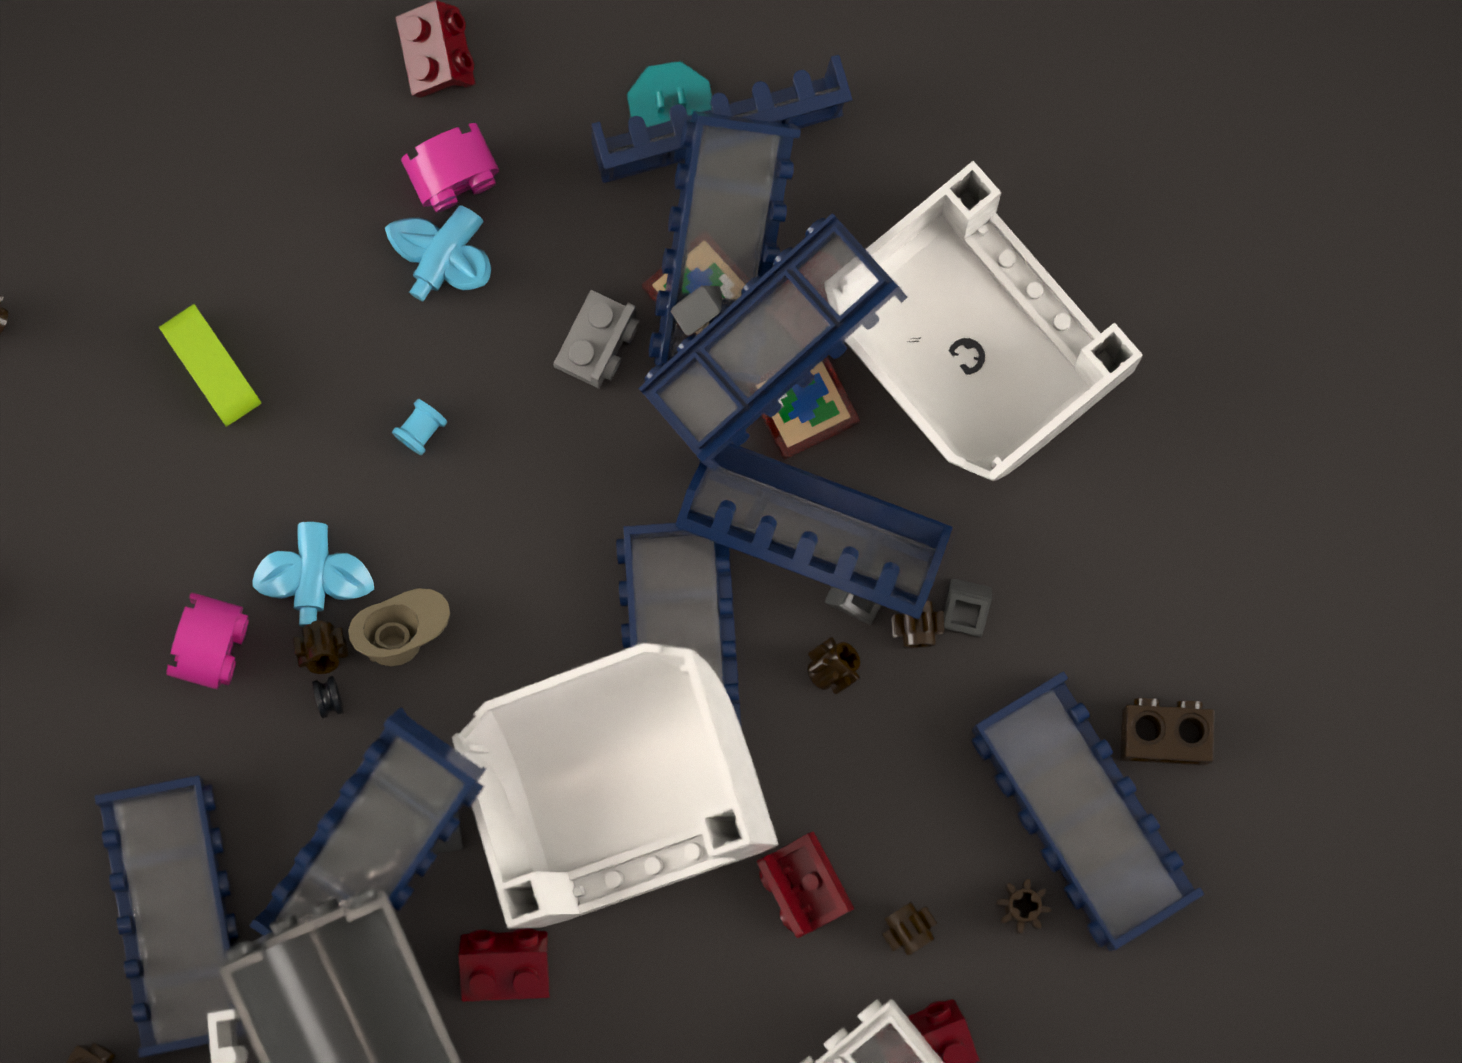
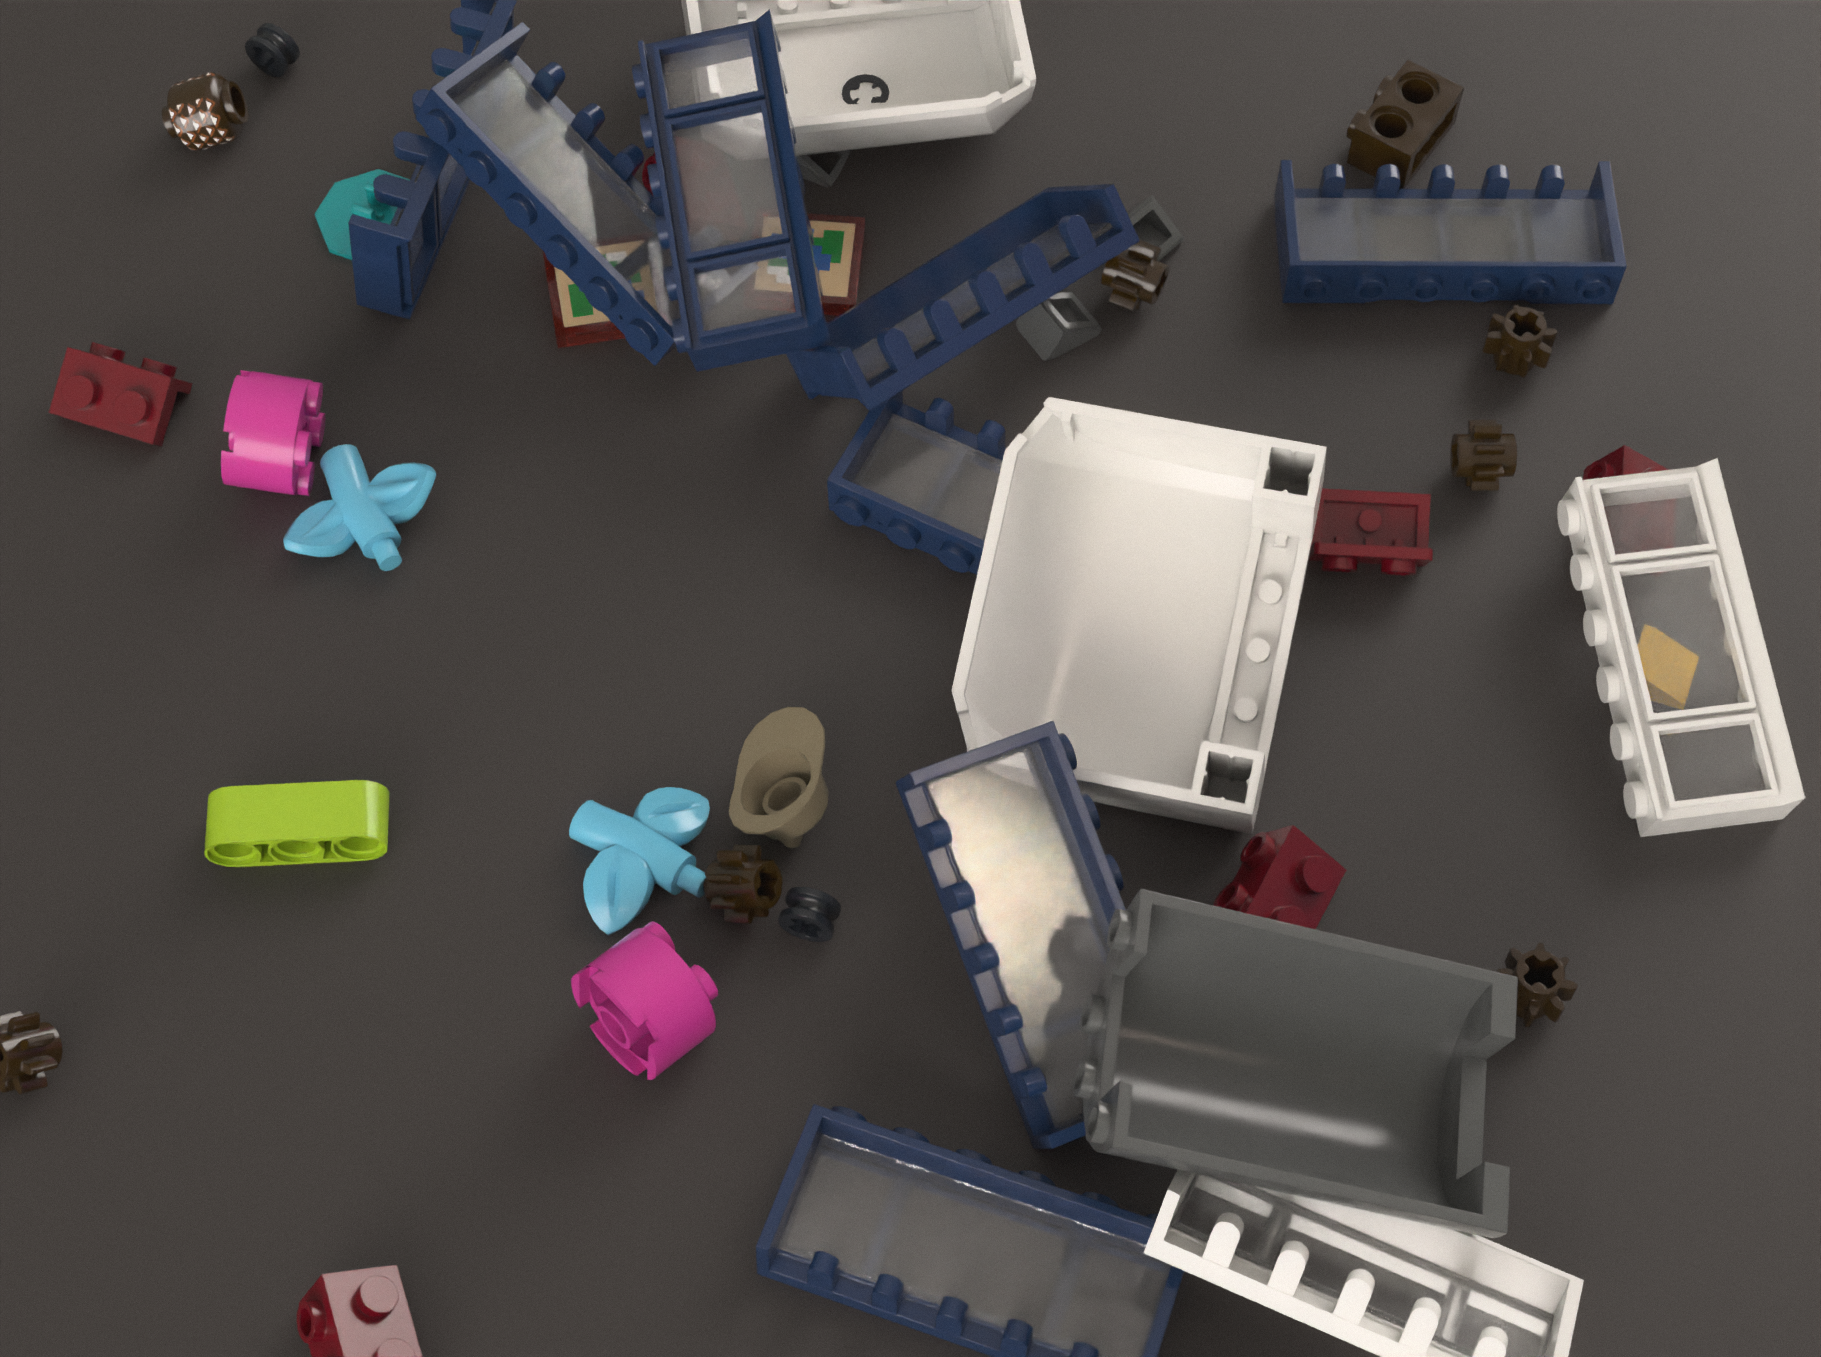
camera: 55 degrees left, 20 degrees down
(419, 427) = (549, 638): medium azure bush -> none
(596, 339) = (586, 412): light grey bracket -> none
(698, 308) = (640, 243): dark grey slope -> none
(833, 665) = (1129, 373): dark brown gear -> none

